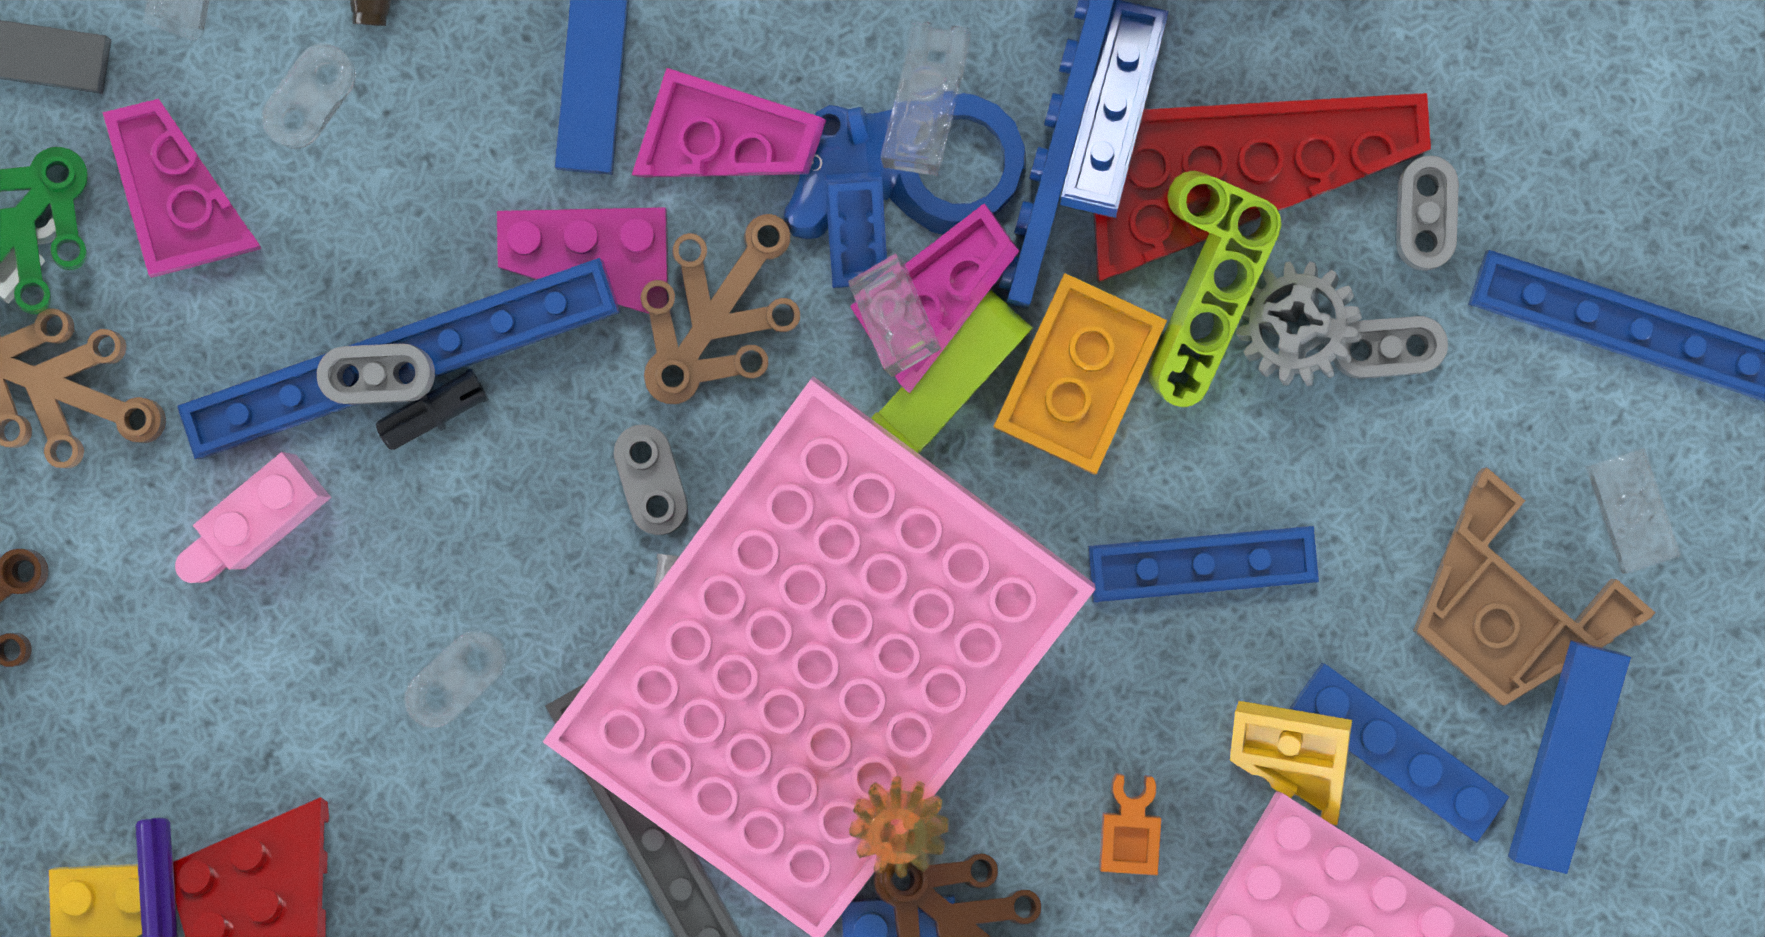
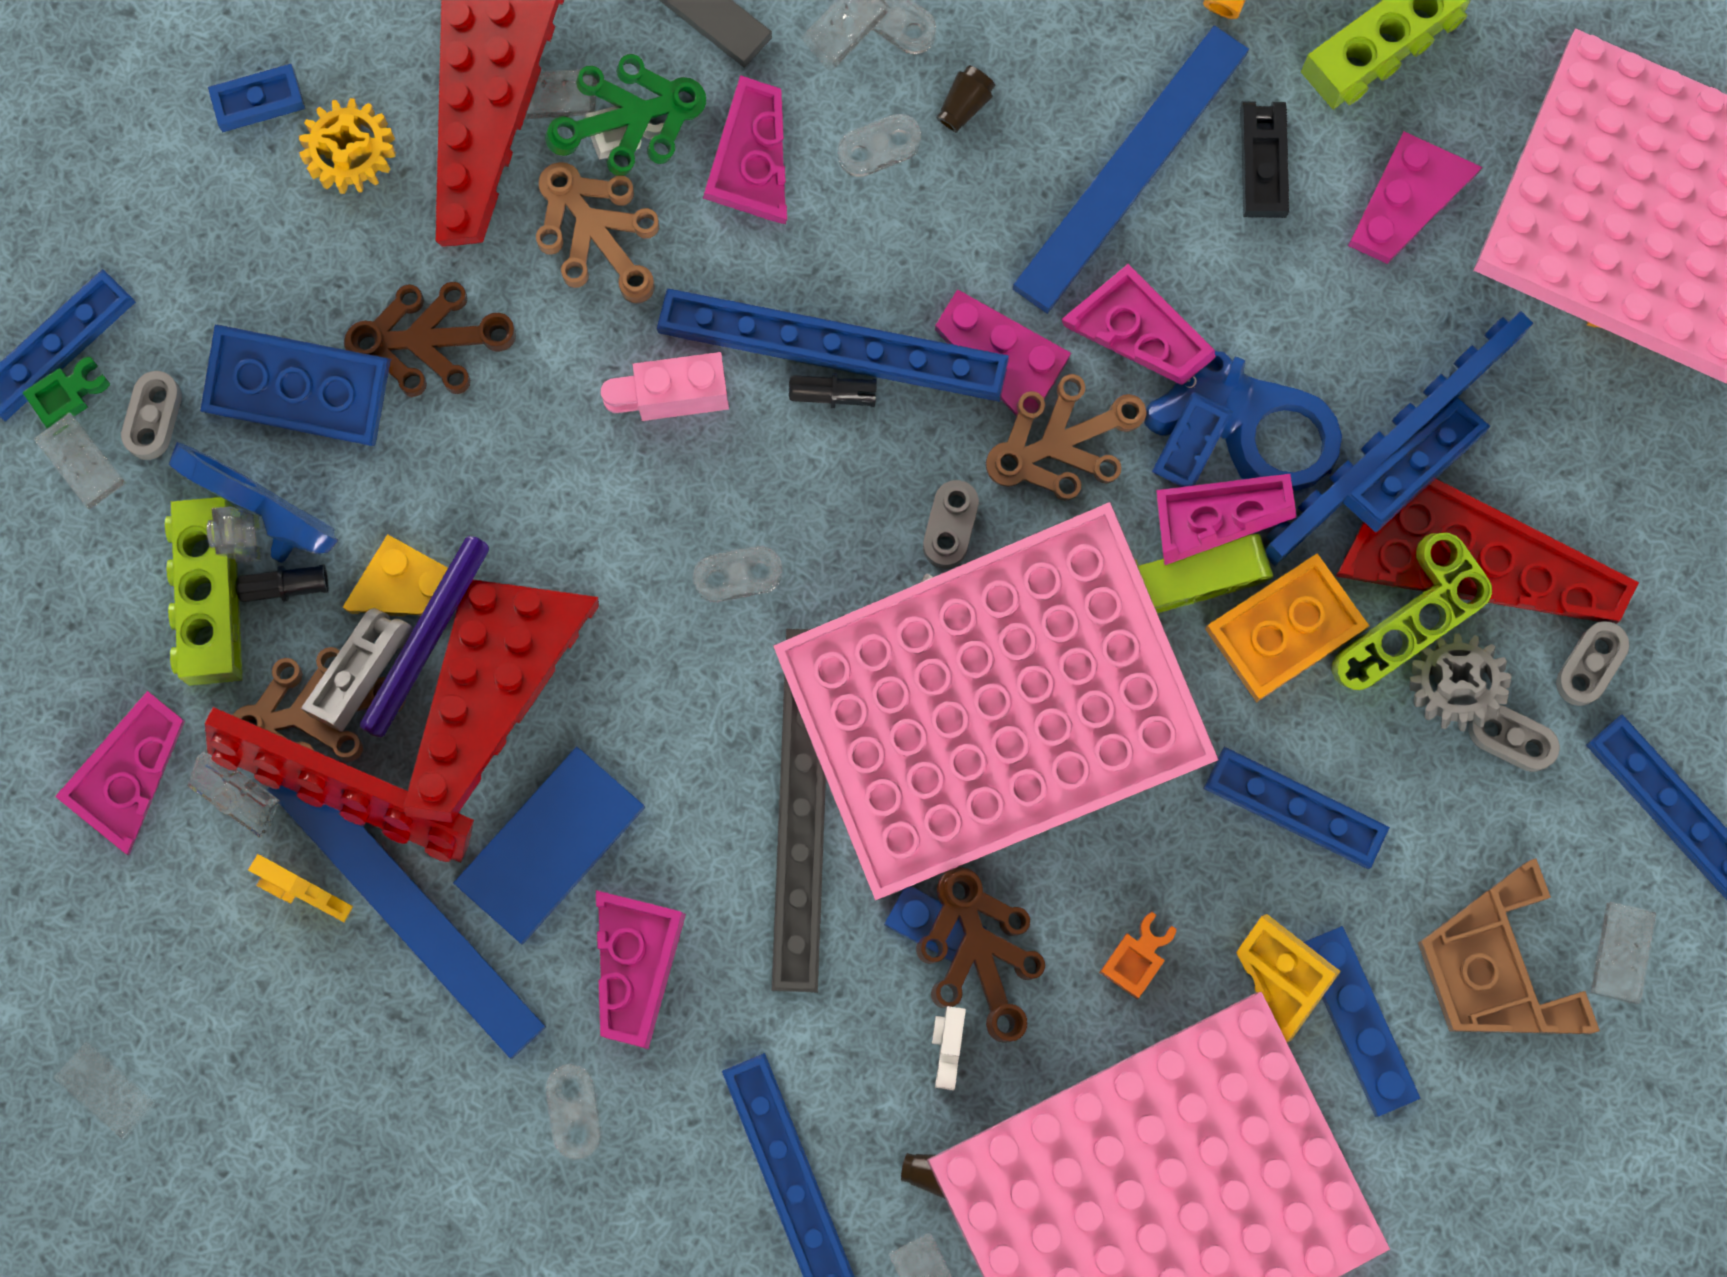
camera: 25 degrees right, 10 degrees down
(378, 374) = (816, 340): light grey plate -> none
(880, 835) = (998, 839): clear yellow gear -> none
(894, 315) = (1185, 508): clear plate -> none
(925, 99) = (1290, 384): clear plate -> none
(1569, 757) = (1479, 1095): blue tile -> none

